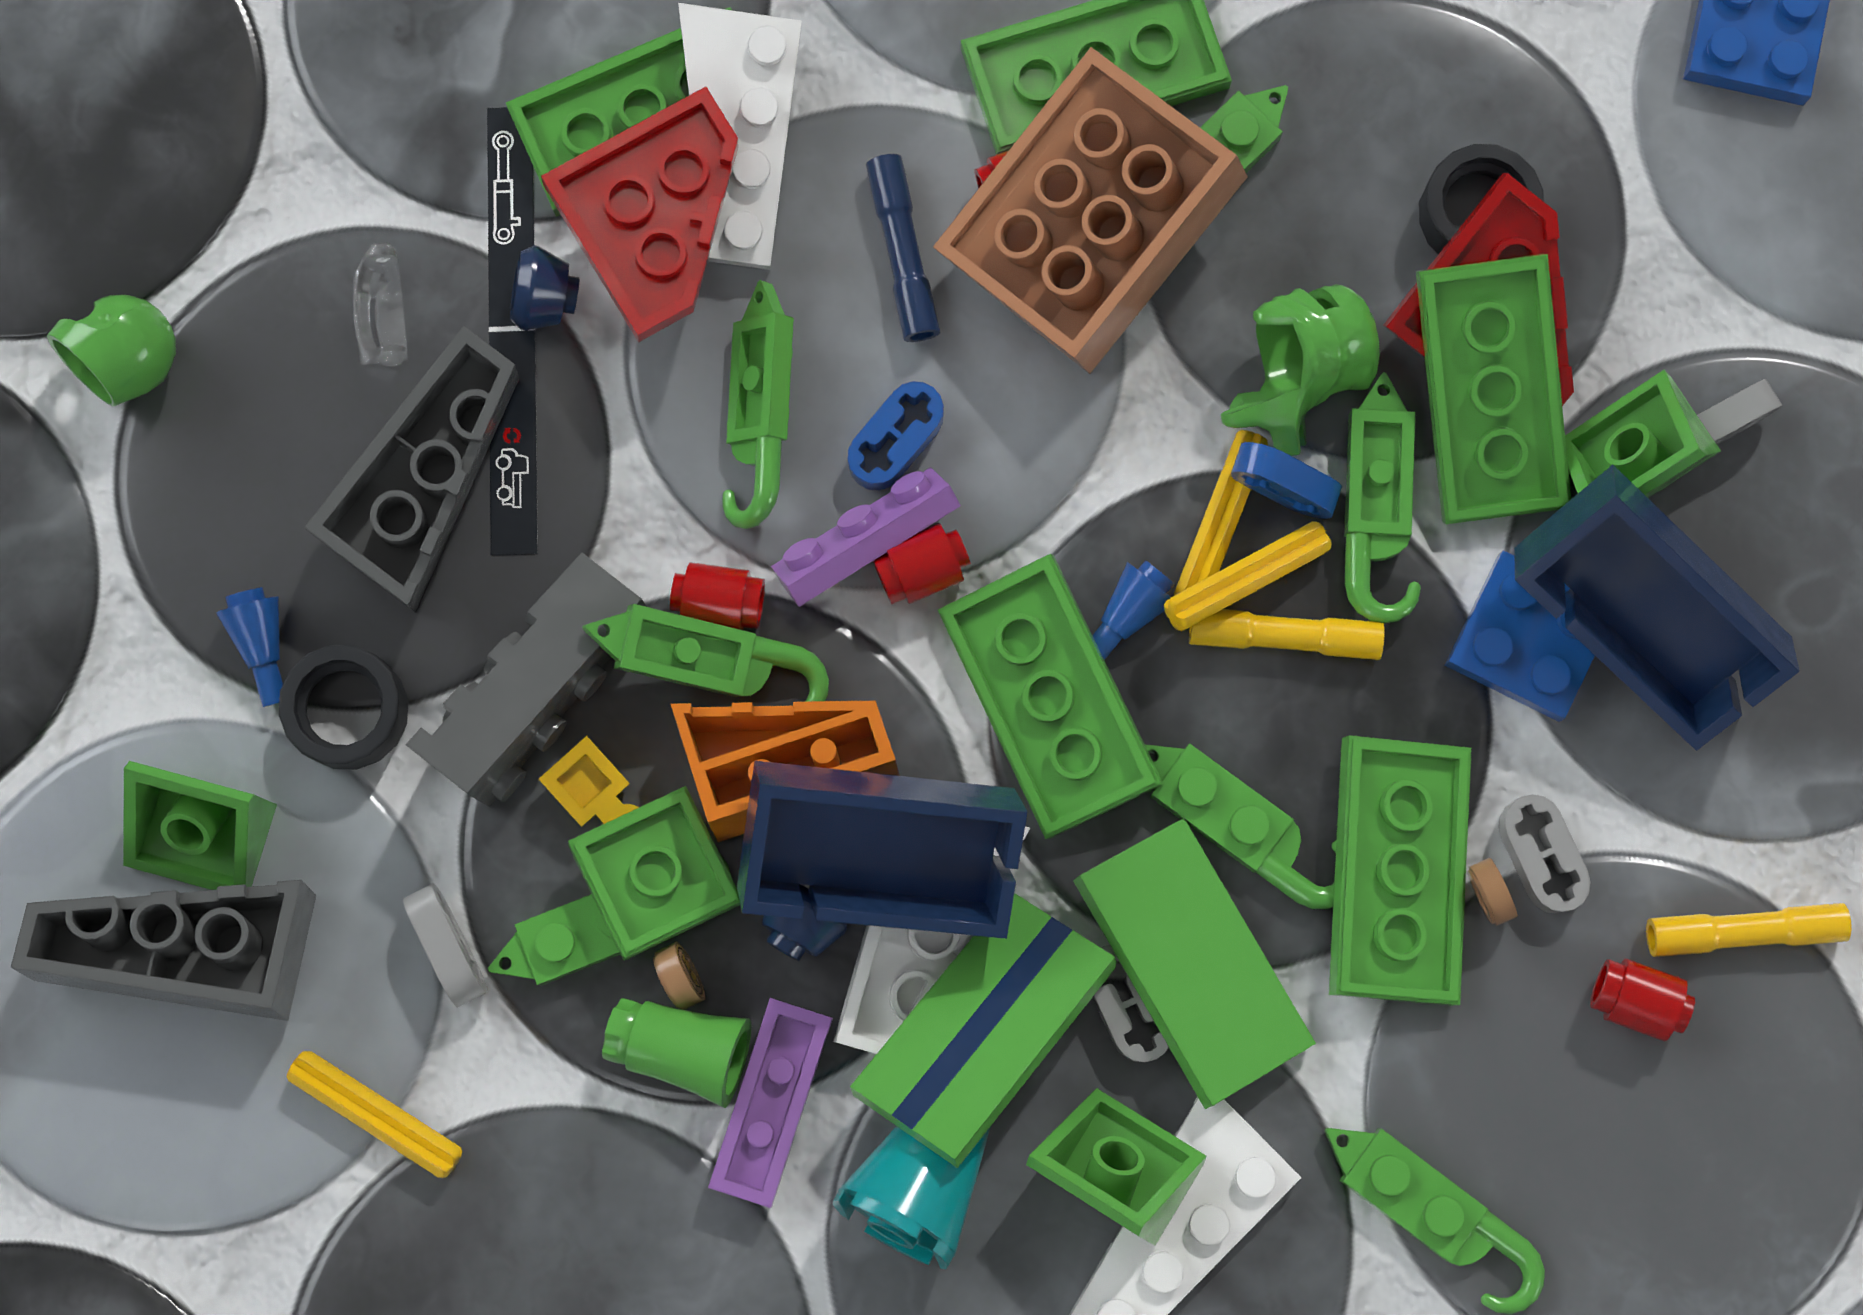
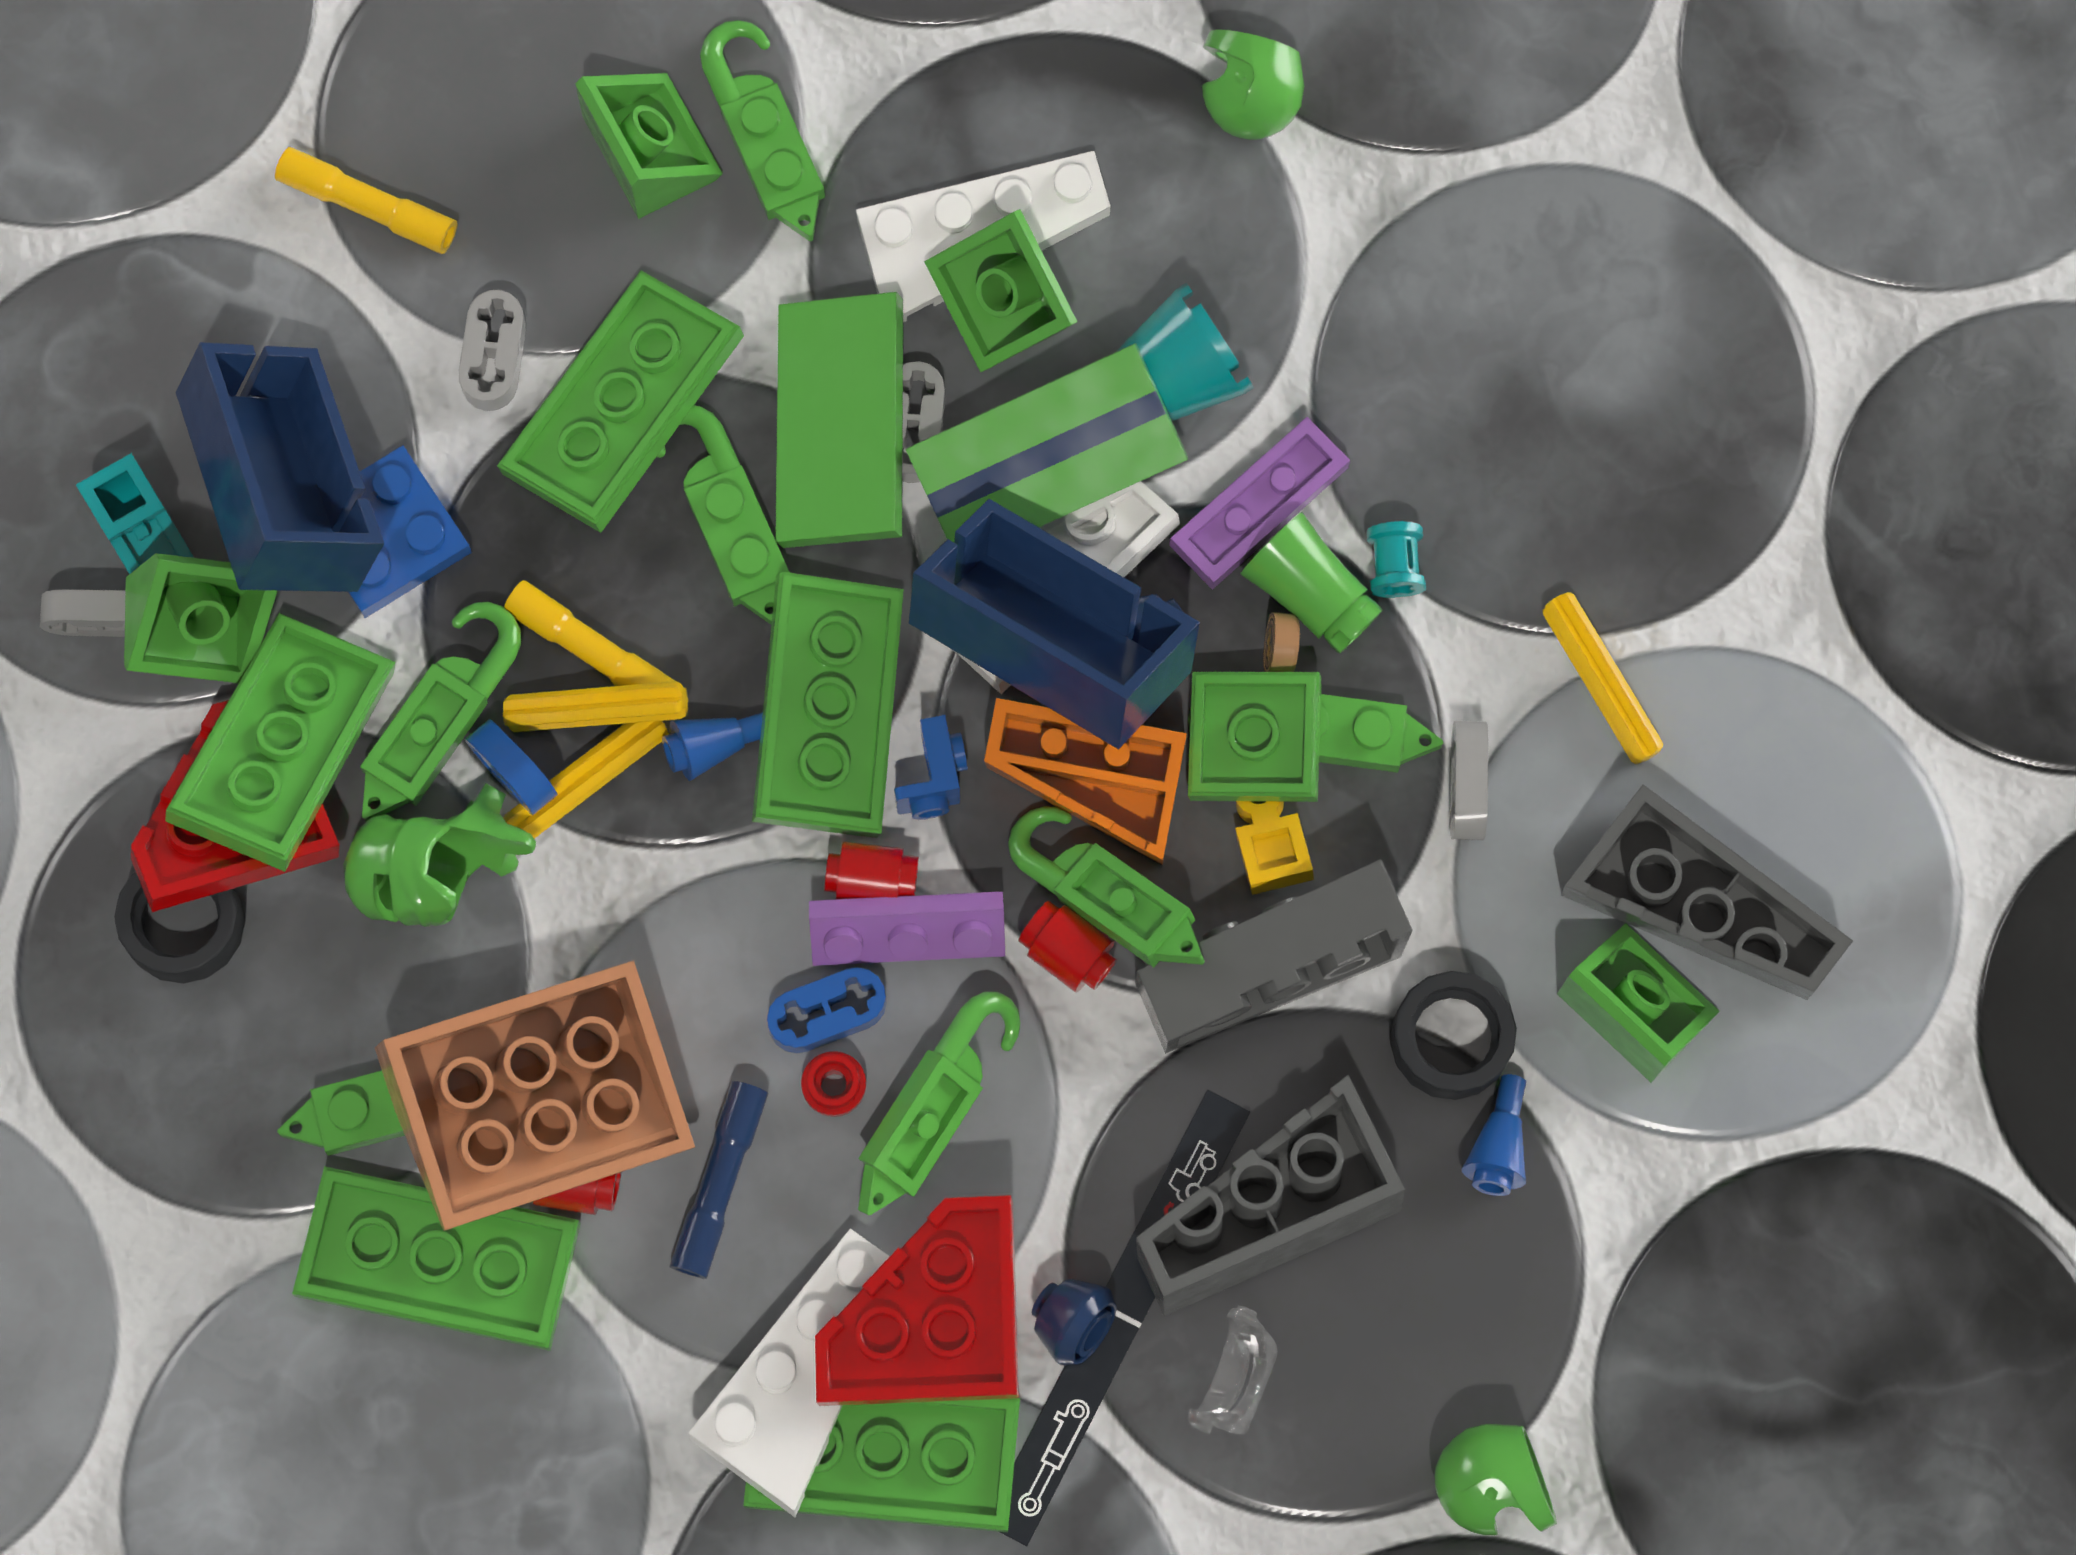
camera: 155 degrees left, 5 degrees down
(617, 1117) = (1396, 559): none -> teal bush
(854, 360) = (829, 1064): none -> red plate
(919, 701) = (944, 759): none -> blue bracket
(1492, 892) = (557, 340): medium nougat tile -> none
(1535, 1136) = (646, 138): none -> bright green slope
(1642, 998) = (490, 192): red brick -> none
(1753, 515) = (131, 513): none -> teal brick

